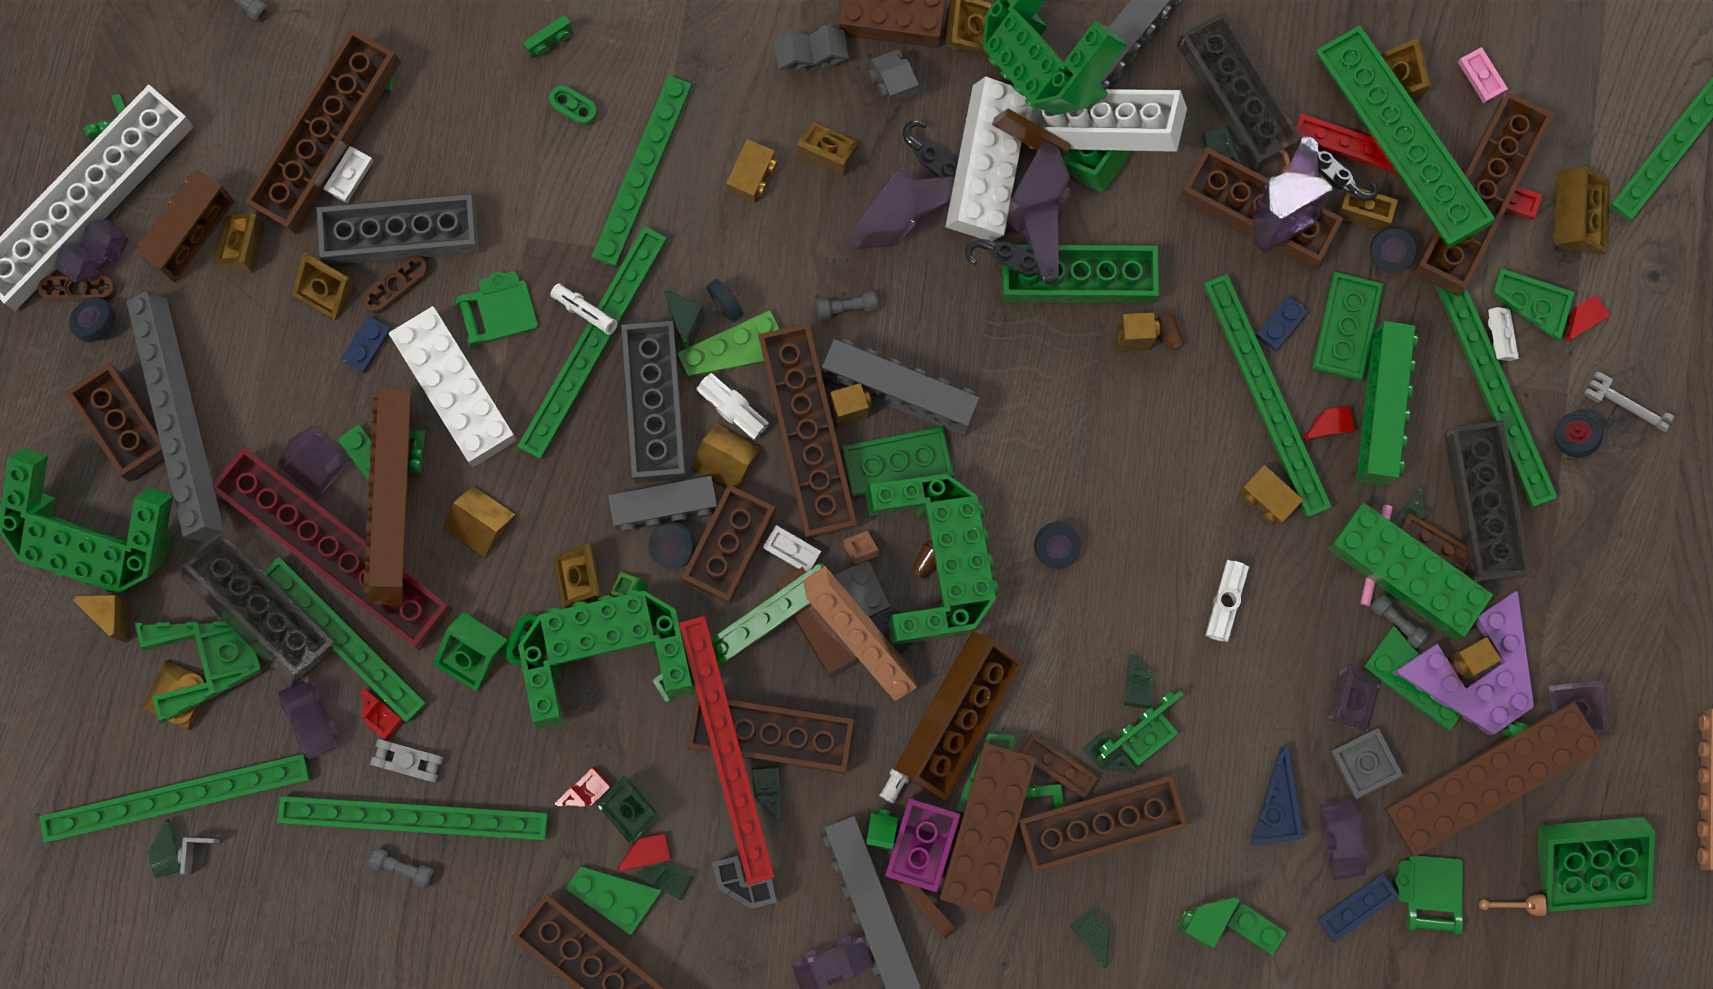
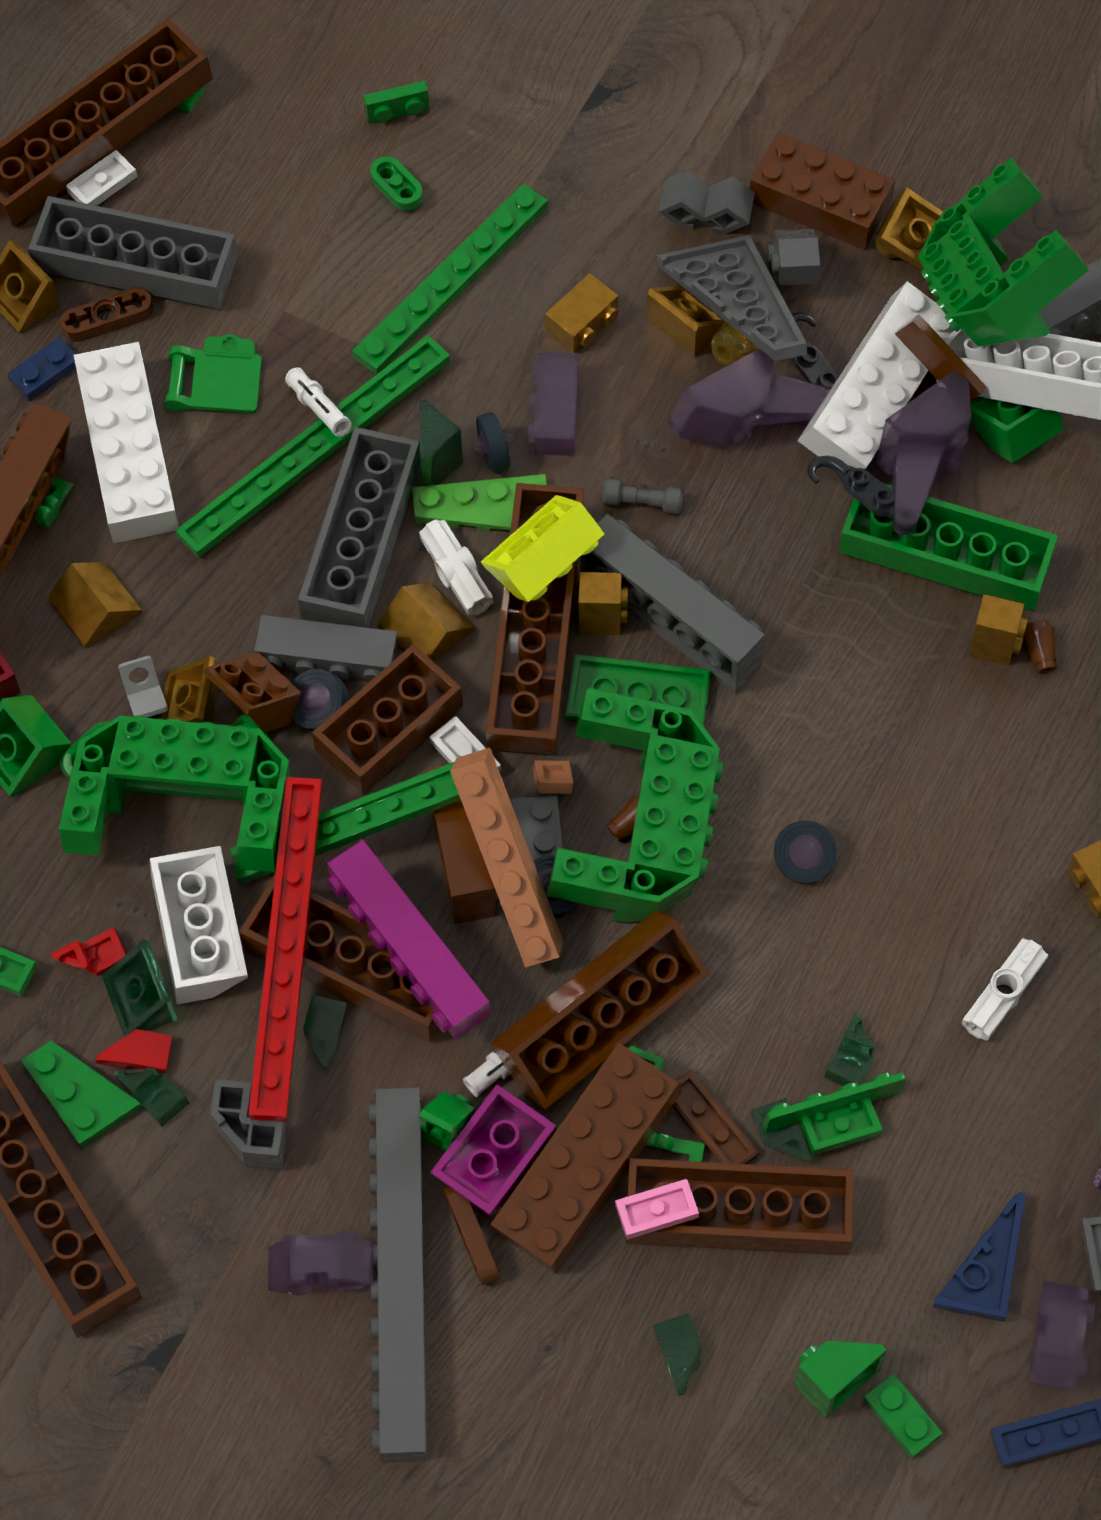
camera: 25 degrees right, 15 degrees down
(543, 582) = (146, 696): none -> light grey bracket
(627, 557) = (257, 690): none -> reddish brown slope
(653, 747) = (198, 923): none -> white slope
(757, 251) = (554, 404): none -> clear purple brick
(798, 383) = (544, 548): none -> neon yellow slope
(810, 715) = (408, 939): none -> magenta brick
(859, 116) = (740, 290): none -> dark grey wing
(871, 159) = (730, 345): none -> clear yellow head
(1051, 853) = (656, 1209): none -> bright pink plate

